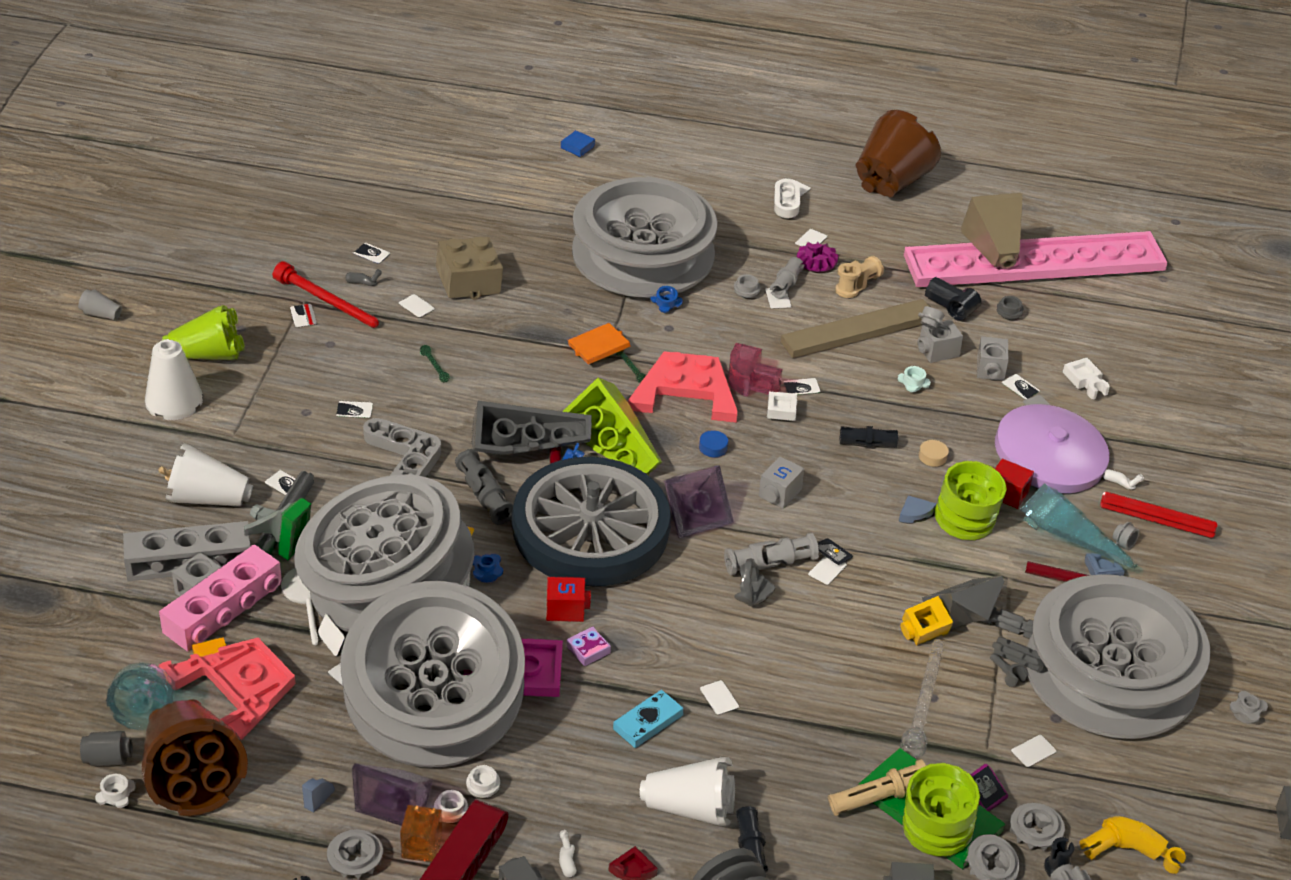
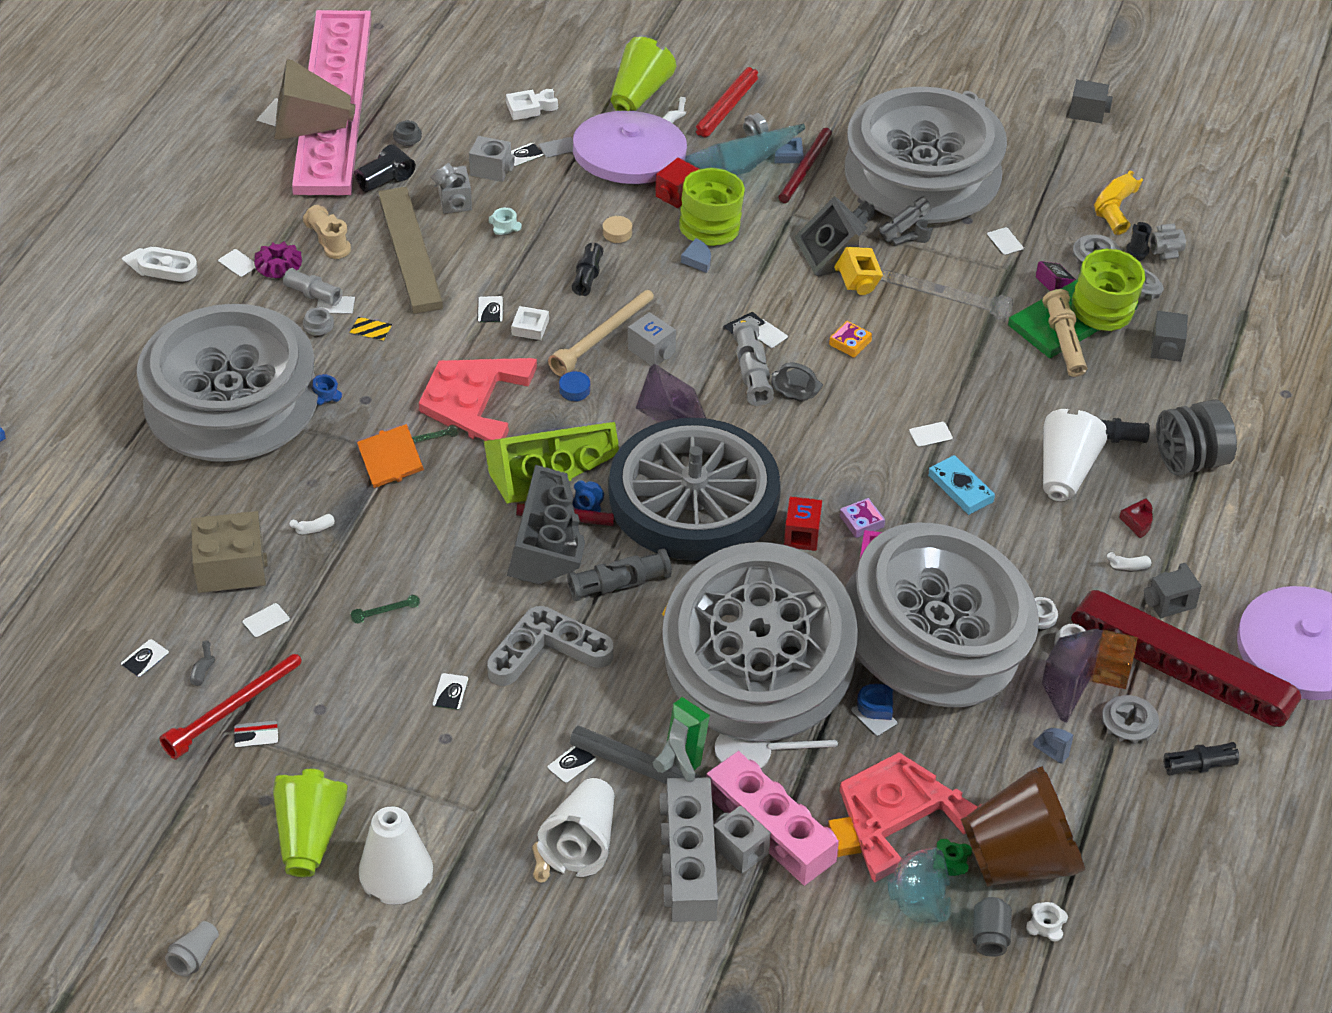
camera: 80 degrees left, 5 degrees up
(331, 635) = (834, 723): white sticker -> none
(516, 314) = (314, 526): none -> white piece
(740, 431) = (564, 360): none -> tan piece
(749, 374) = (470, 340): clear pink brick -> none
(755, 320) = (371, 328): none -> sticker
(832, 626) = (850, 339): none -> light orange tile
(897, 153) = (141, 153): reddish brown cone -> none
(1150, 439) = (641, 73): none -> lime cone

